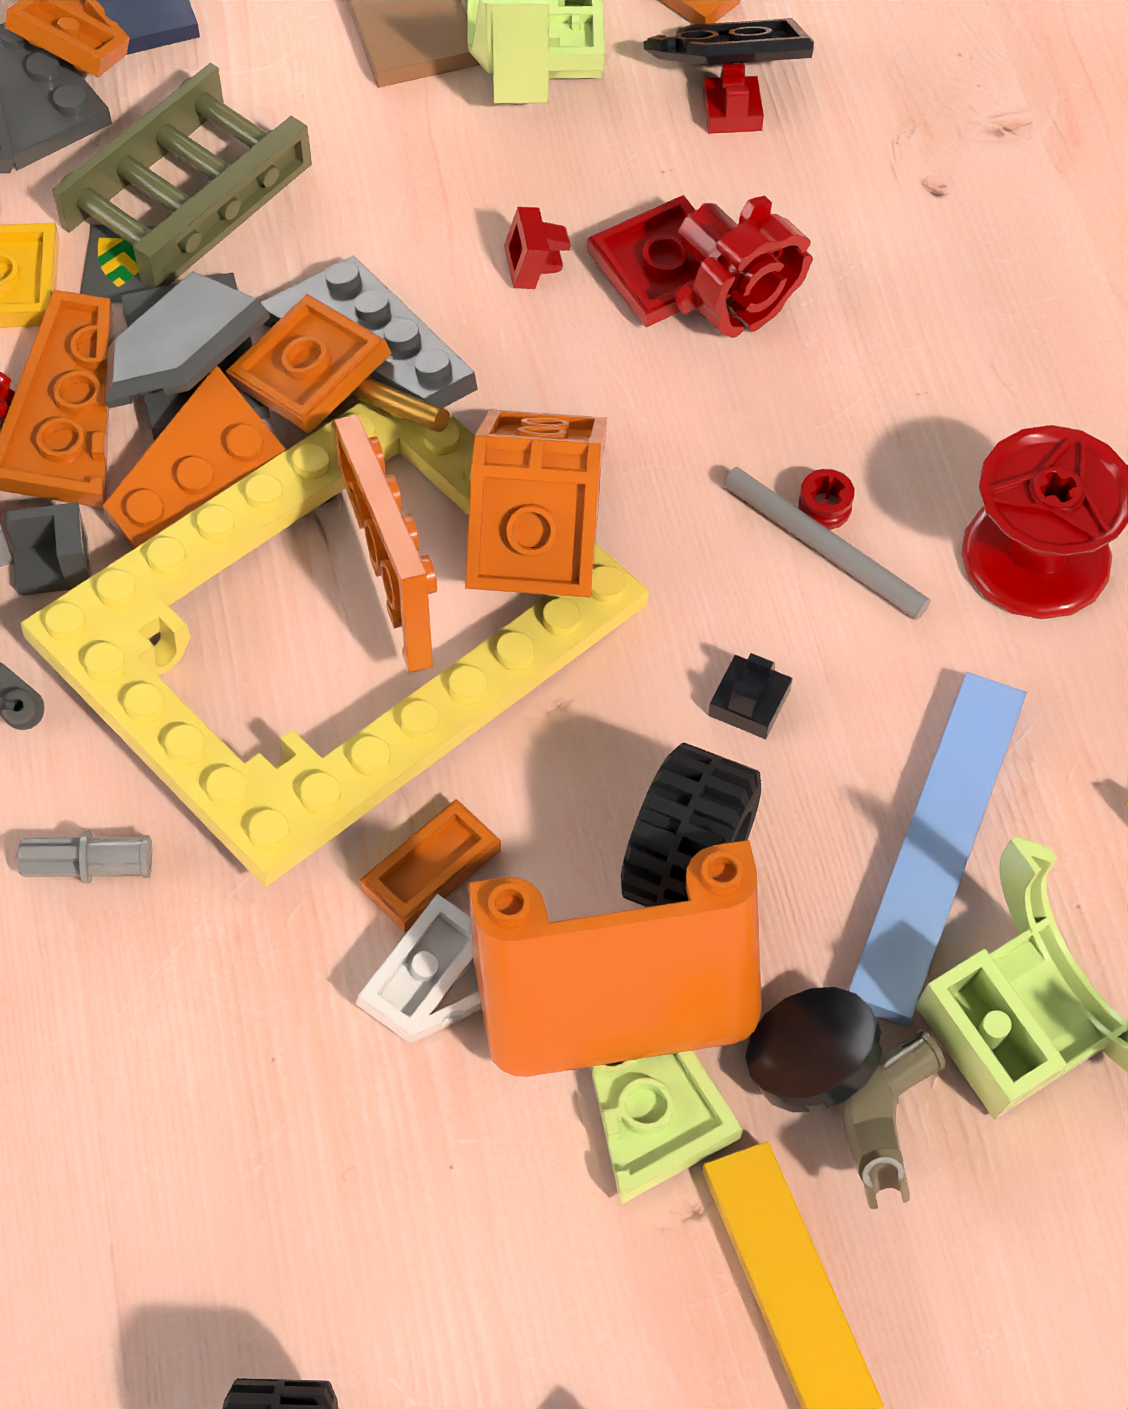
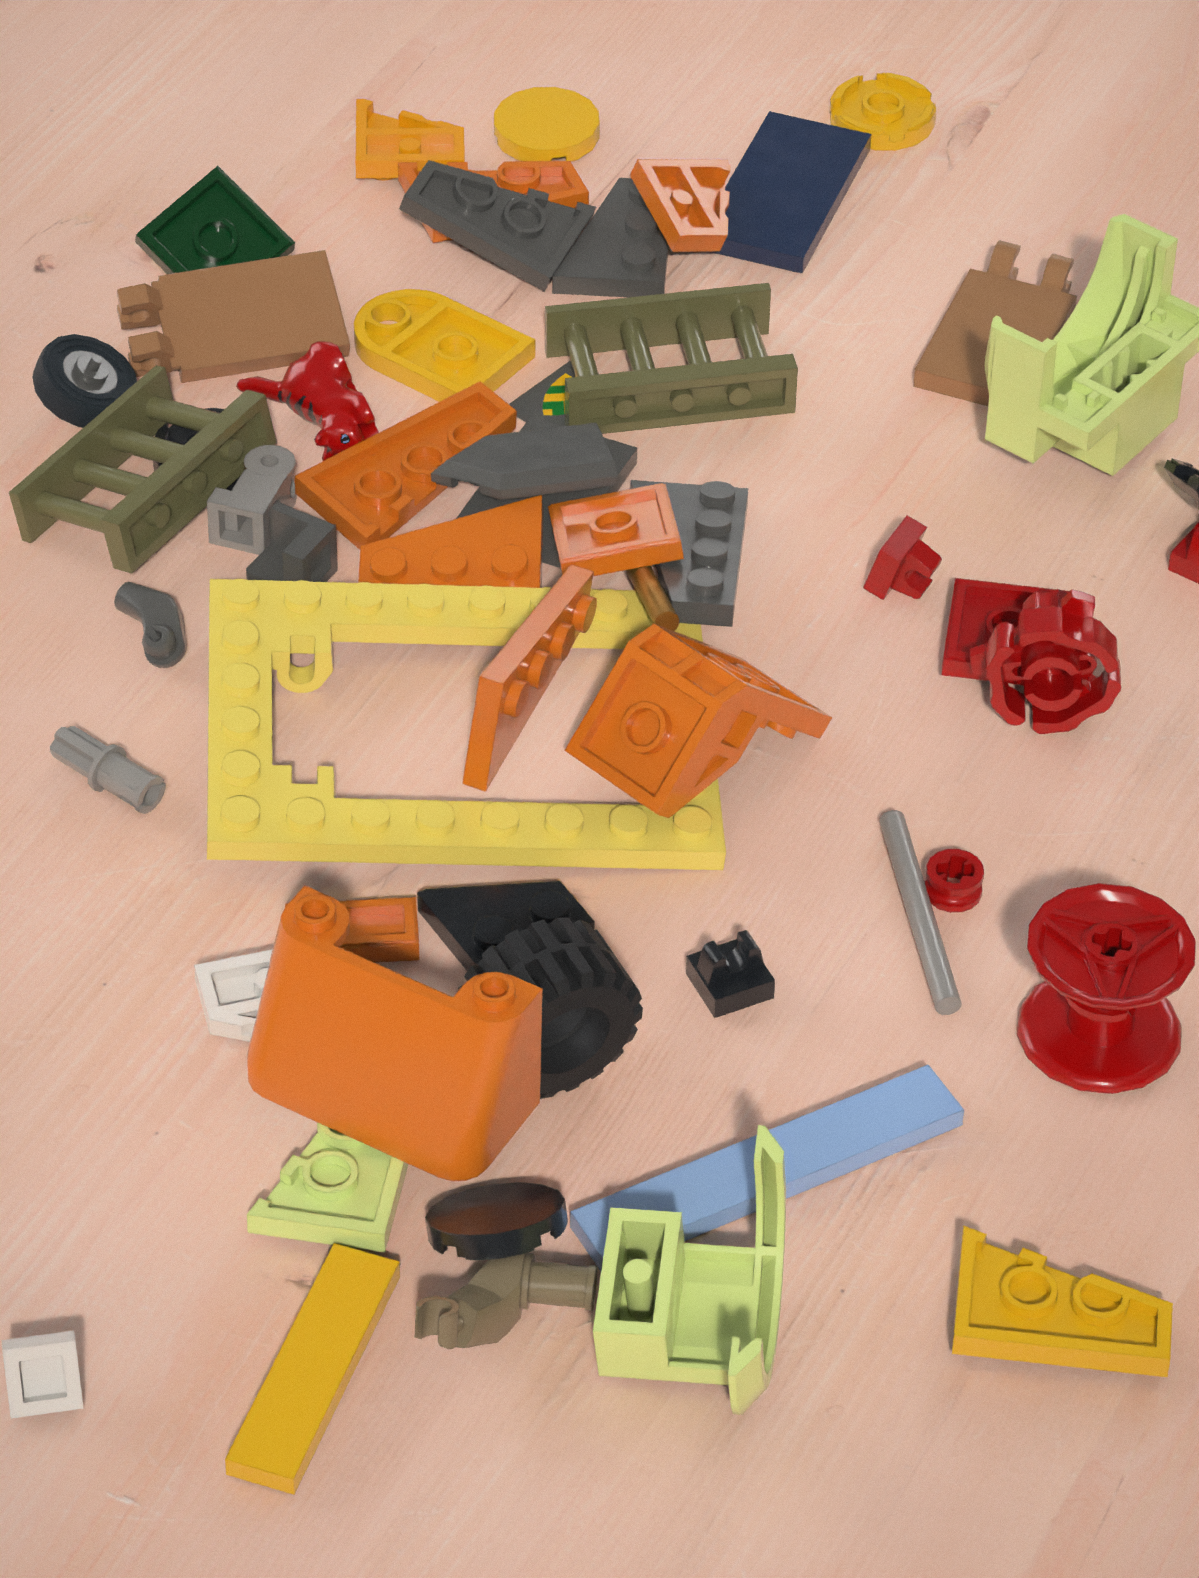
camera: 40 degrees right, 15 degrees down
(542, 773) = (481, 916): none -> black wing

